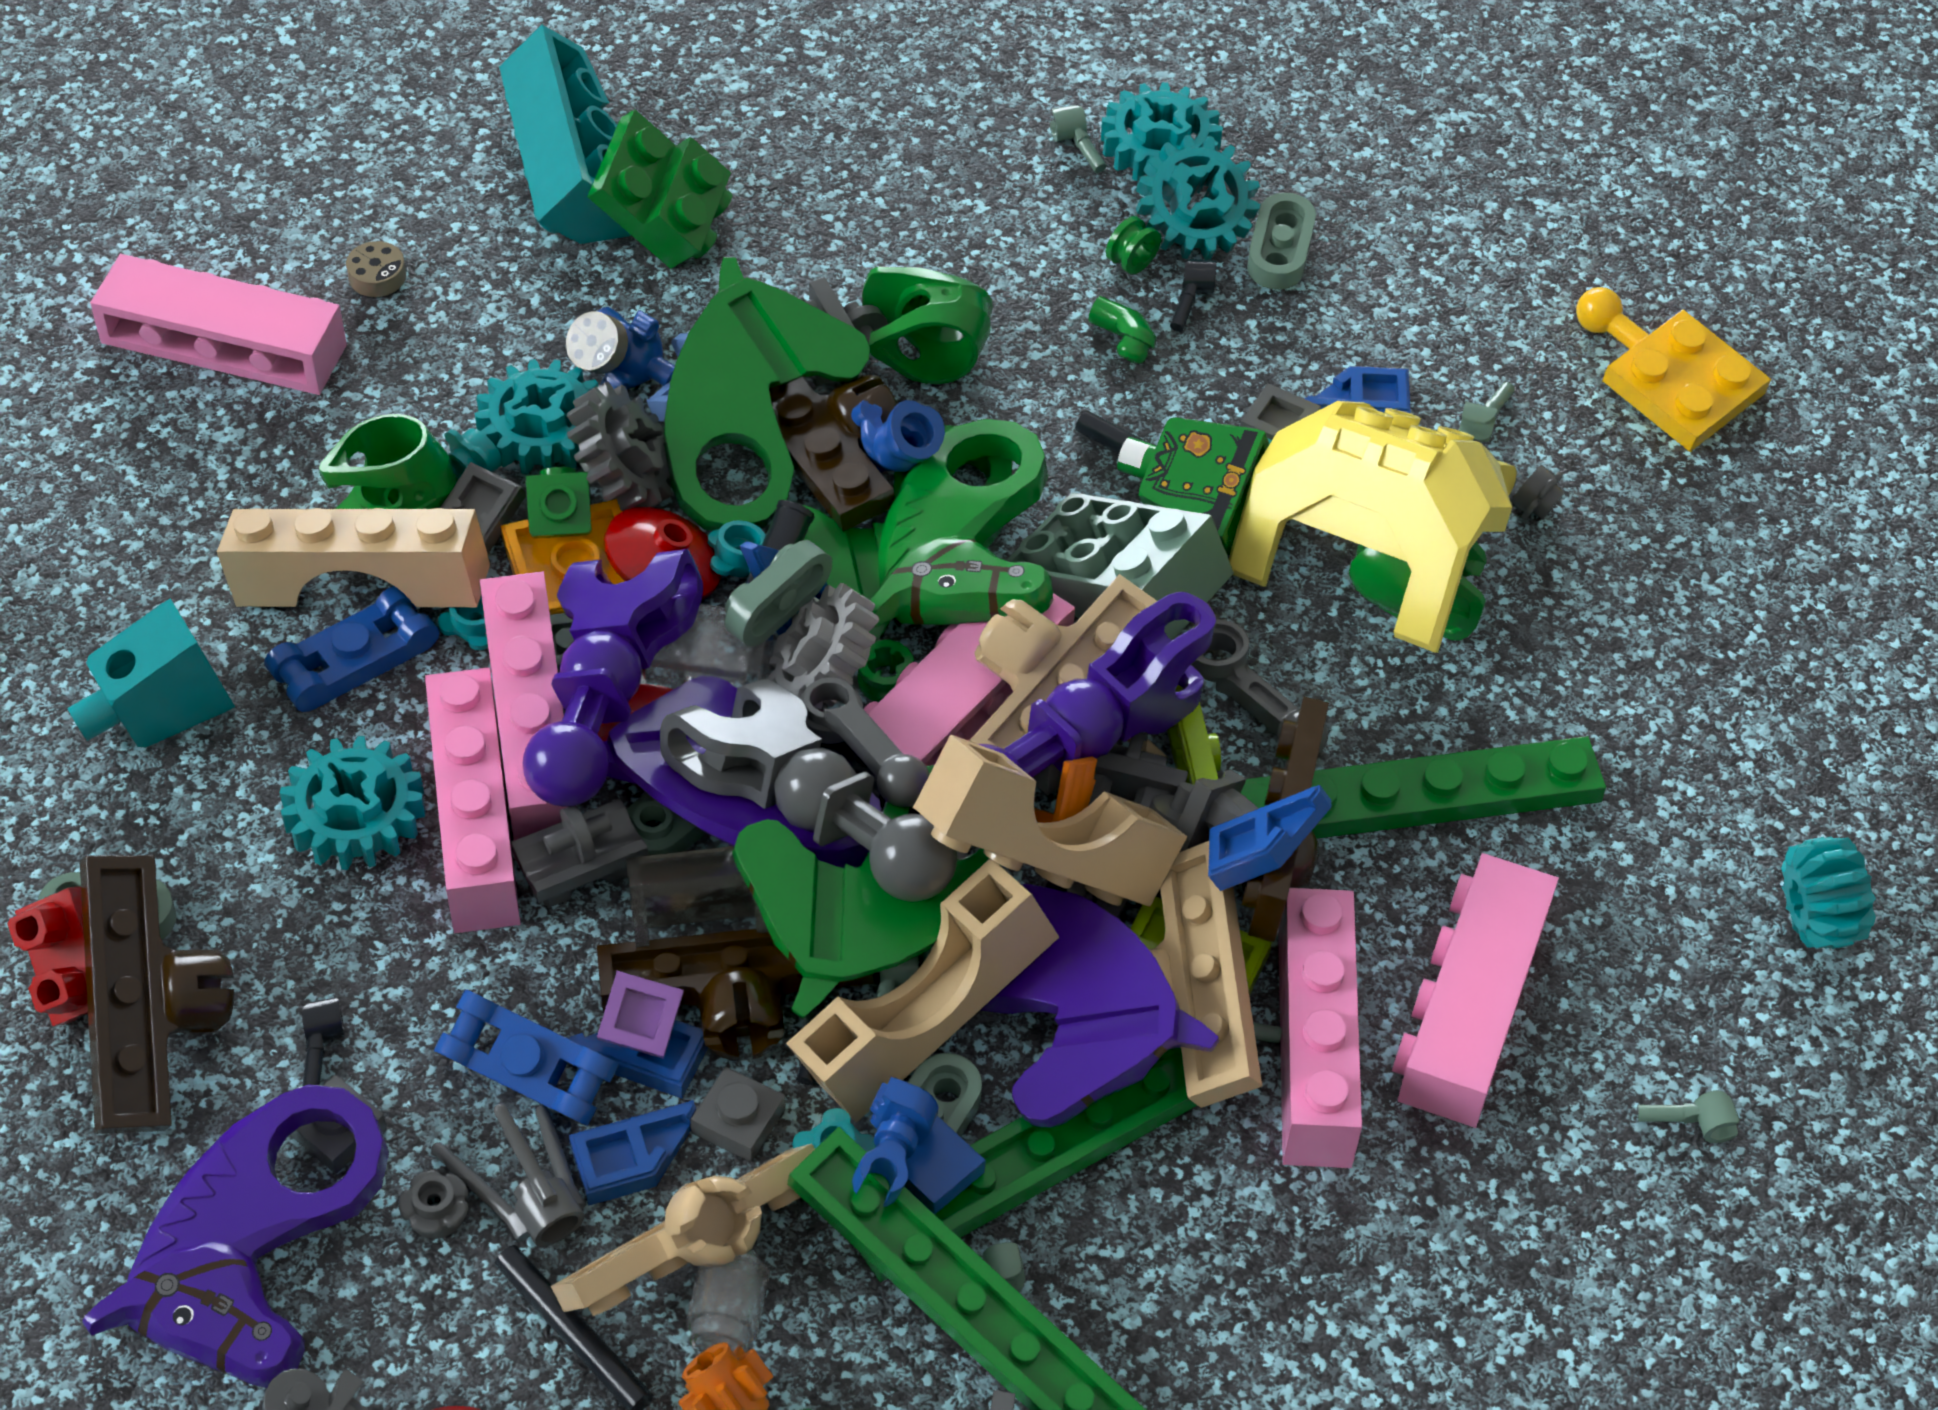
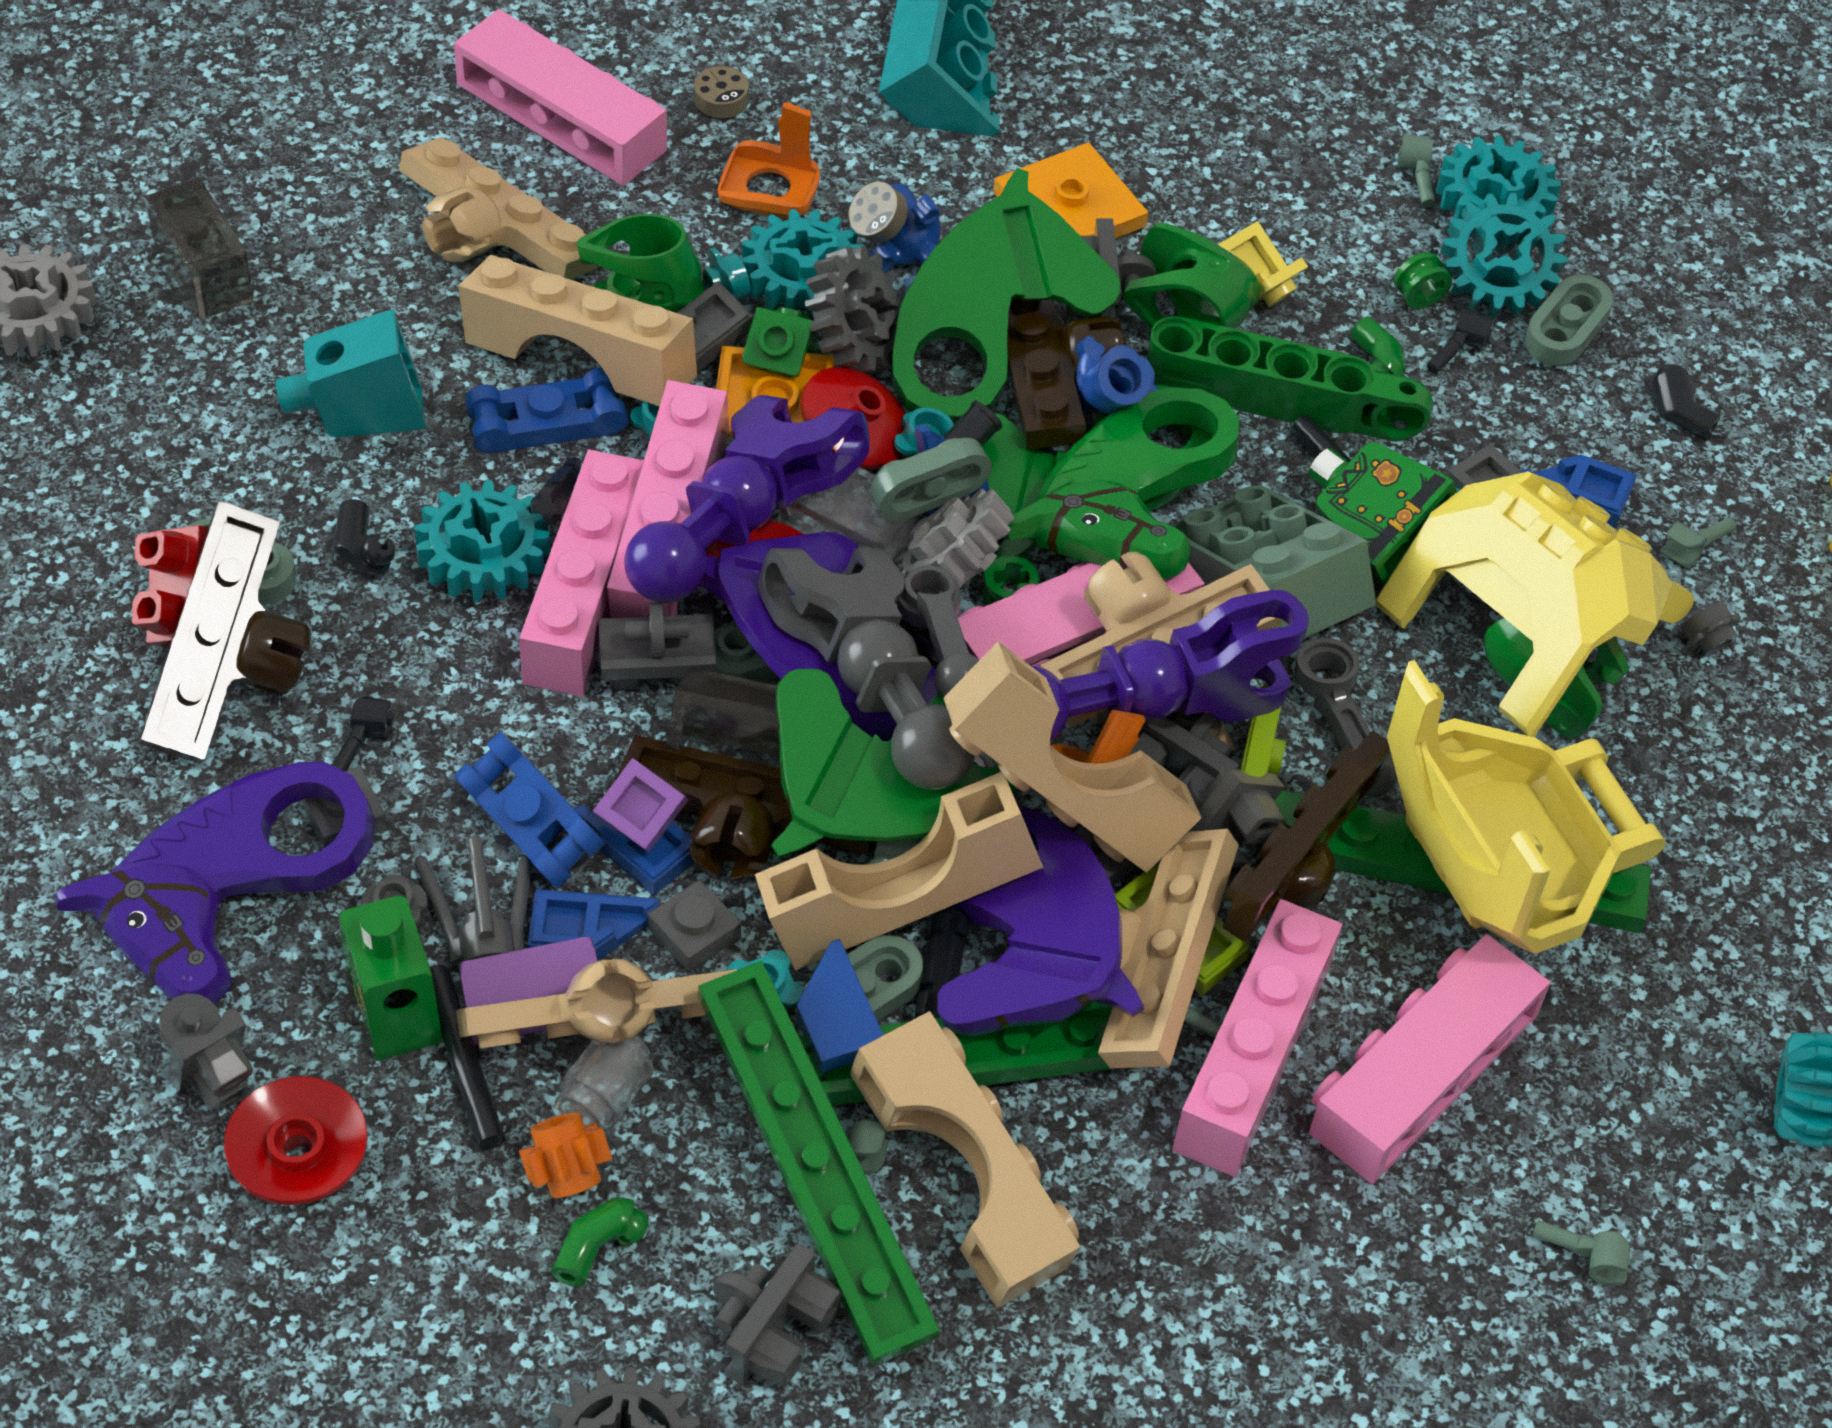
camera: 20 degrees right, 0 degrees up
(198, 466) = (483, 210): none -> tan plate
(223, 852) = (355, 545): none -> black arm
(411, 726) = (556, 493): none -> black axle
(457, 1263) = (383, 957): none -> green torso
(480, 318) = (789, 160): none -> orange piece
(603, 1224) = (524, 974): none -> medium lavender slope
(661, 190) = (1001, 97): green plate -> none
(770, 254) = (1081, 189): none -> light orange plate
(902, 1119) = (822, 975): blue piece -> none
(970, 264) = (1262, 257): none -> light yellow bracket
(995, 1066) = (942, 957): none -> black axle
(1043, 1190) = (921, 1084): none -> tan arch
(1054, 381) = (1287, 379): none -> green piece
(1263, 837) = (1266, 839): blue tile -> none
(1411, 288) = (1676, 402): none -> black arm
(1462, 740) = (1511, 820): none -> light yellow piece

